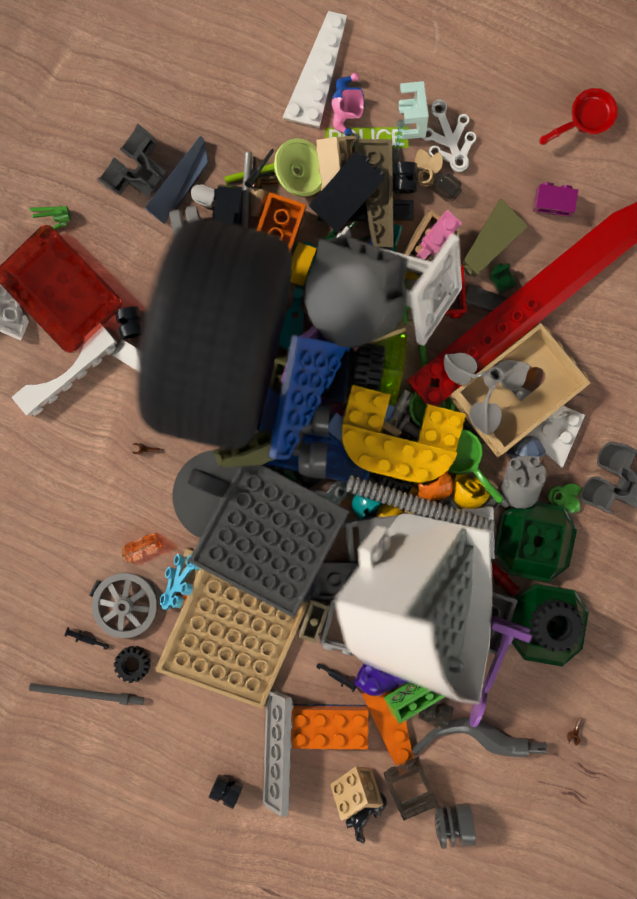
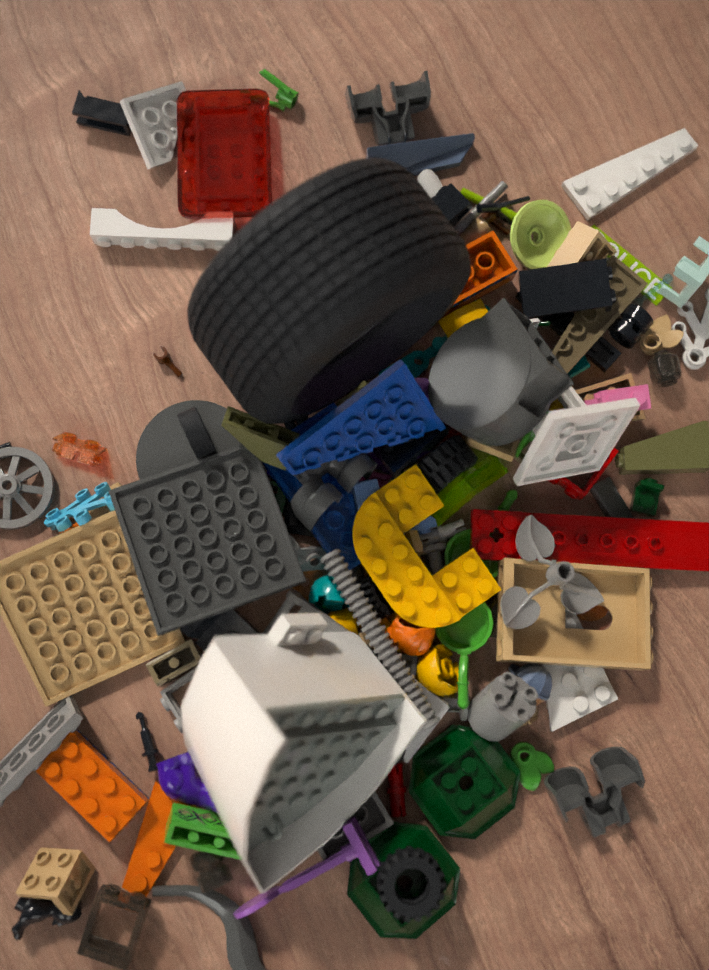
camera: 35 degrees right, 10 degrees down
(347, 103) = (633, 218): bright pink piece -> none

